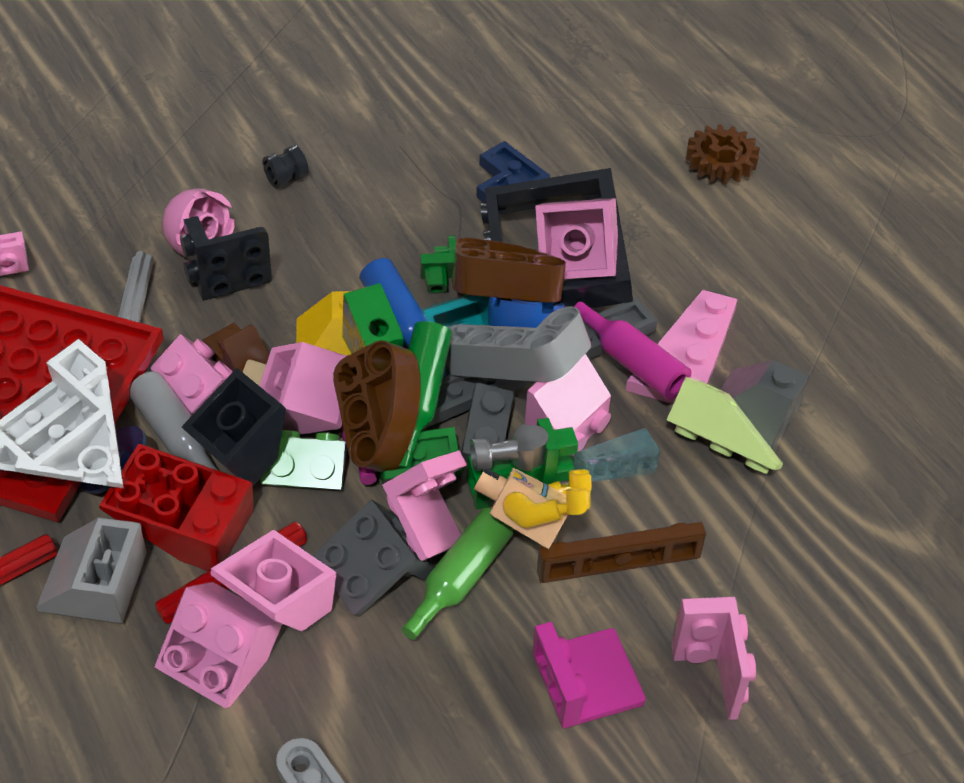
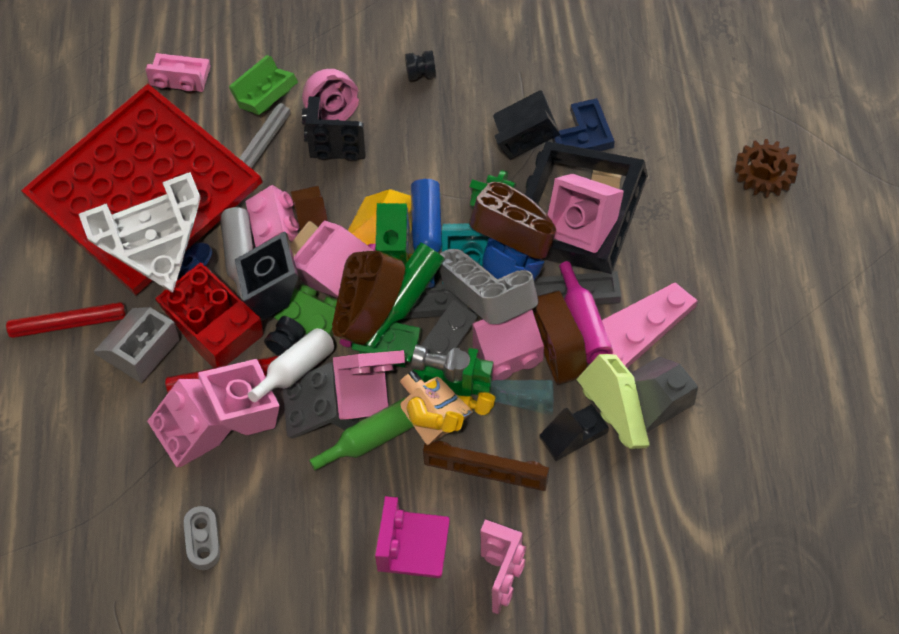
camera: 30 degrees right, 10 degrees up
(105, 241) = (262, 86): none -> bright green bracket
(287, 498) = (286, 335): none -> black wheel
(324, 518) = (294, 363): none -> white piece
(444, 186) = (525, 125): none -> black bracket
(635, 381) = (561, 338): none -> reddish brown beam
(692, 480) = (572, 431): none -> black slope

